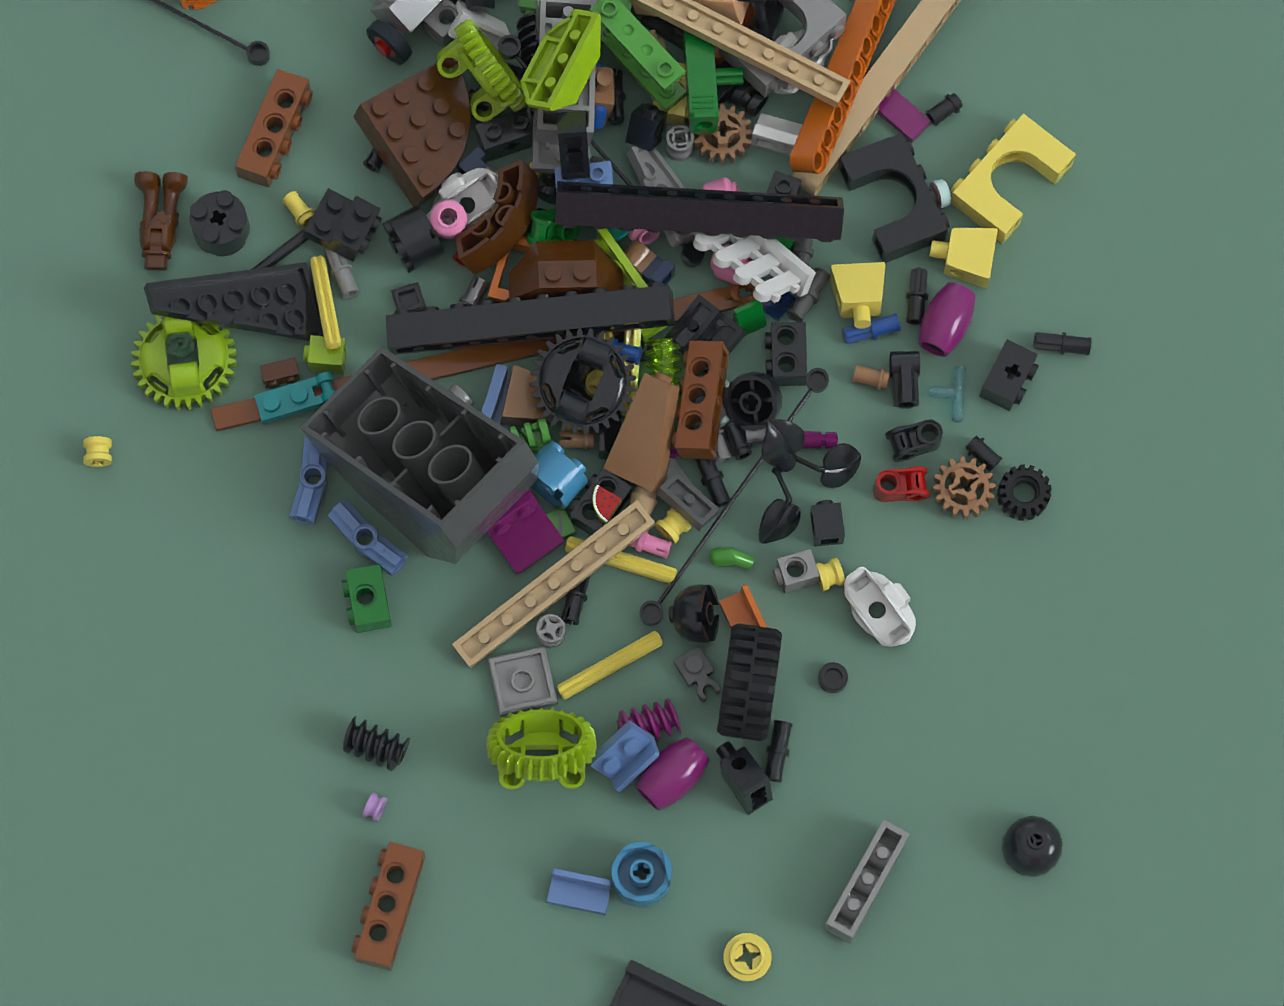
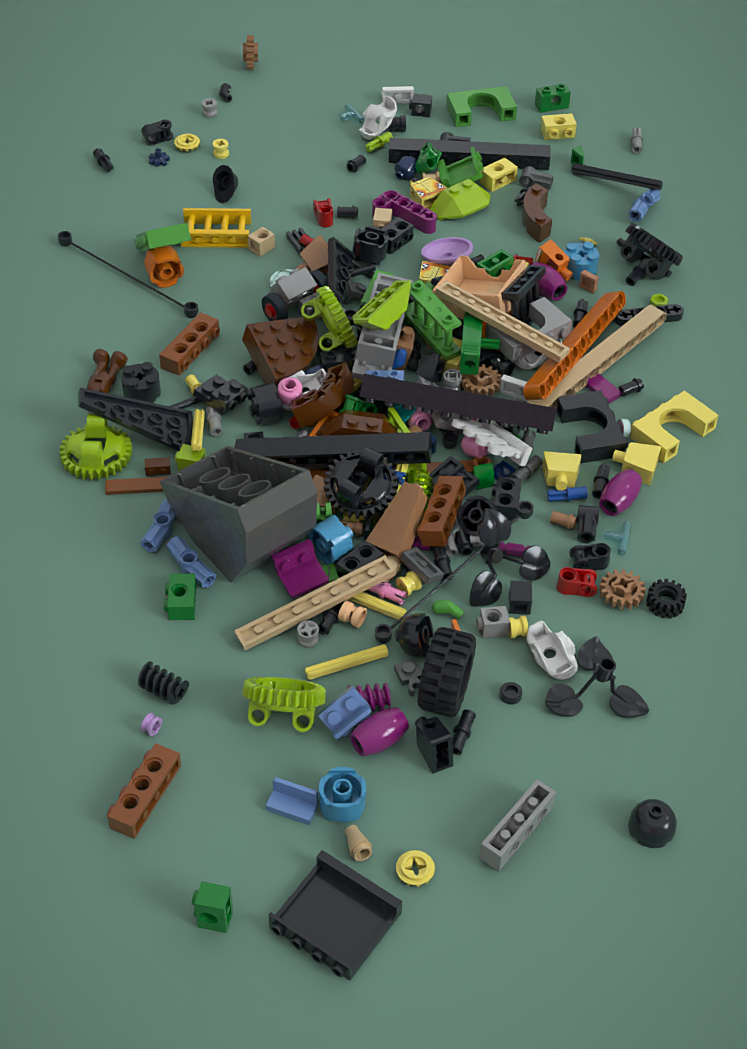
camera: 10 degrees right, 25 degrees down
(97, 451) = (21, 490): light yellow wheel -> none
(183, 351) = (94, 433): clear green plate -> none
(294, 398) = (151, 480): teal plate -> none
(522, 681) = (281, 660): light grey tile -> none
(573, 144) = (380, 351): black brick -> none
(605, 503) = (362, 557): red tile -> none
(605, 589) = (352, 614): none -> light nougat wheel
(671, 935) = (358, 844): none -> tan cone
(940, 603) = (594, 656): none -> black plant
(983, 453) = (638, 570): black pin -> none
(1012, 360) = (661, 530): black brick -> none
(1062, 343) = (701, 518): black axle -> none

